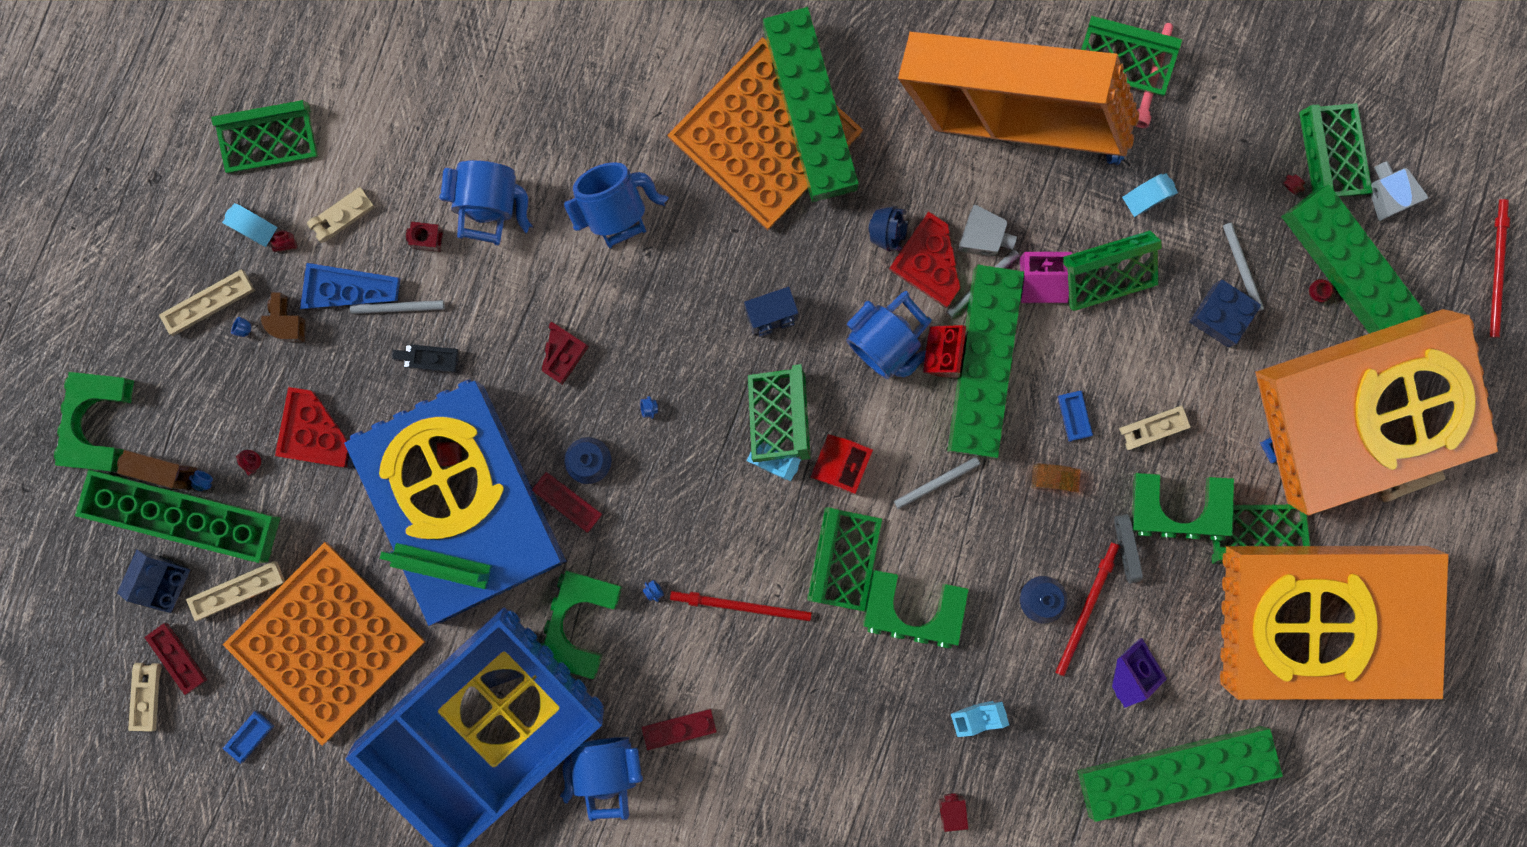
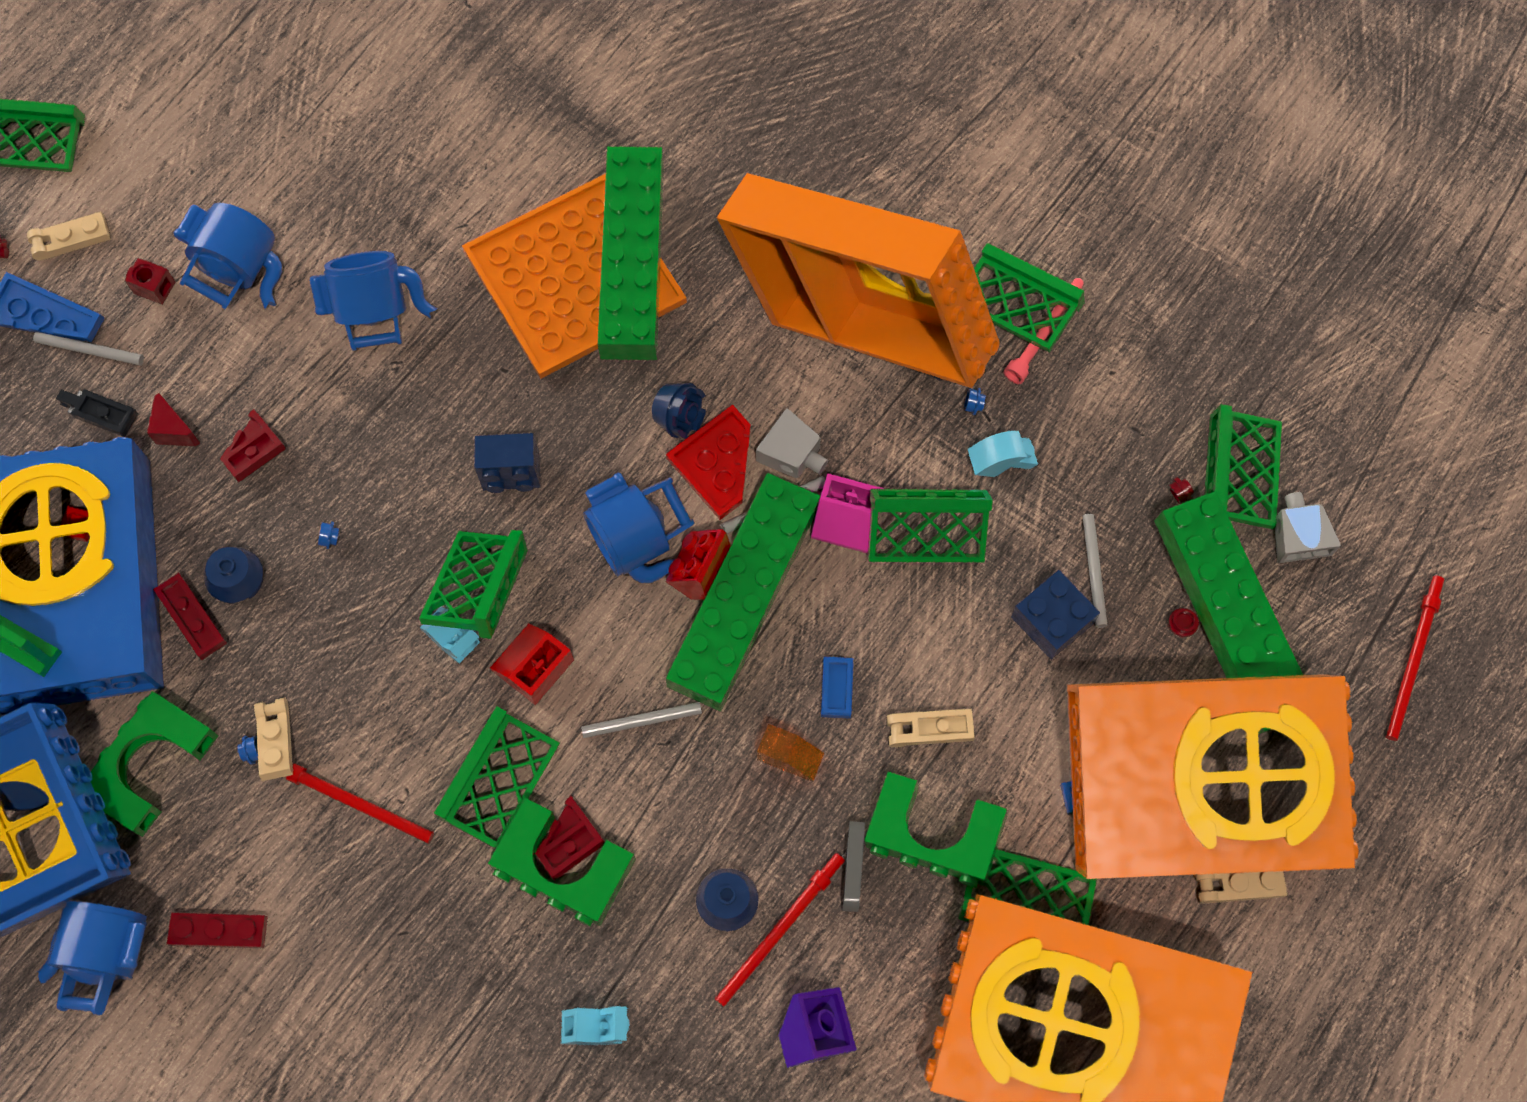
camera: 15 degrees right, 15 degrees down
(490, 355) = (167, 427): none -> dark red slope
(669, 579) = (273, 740): none -> tan plate
(914, 590) = (569, 841): none -> dark red wing

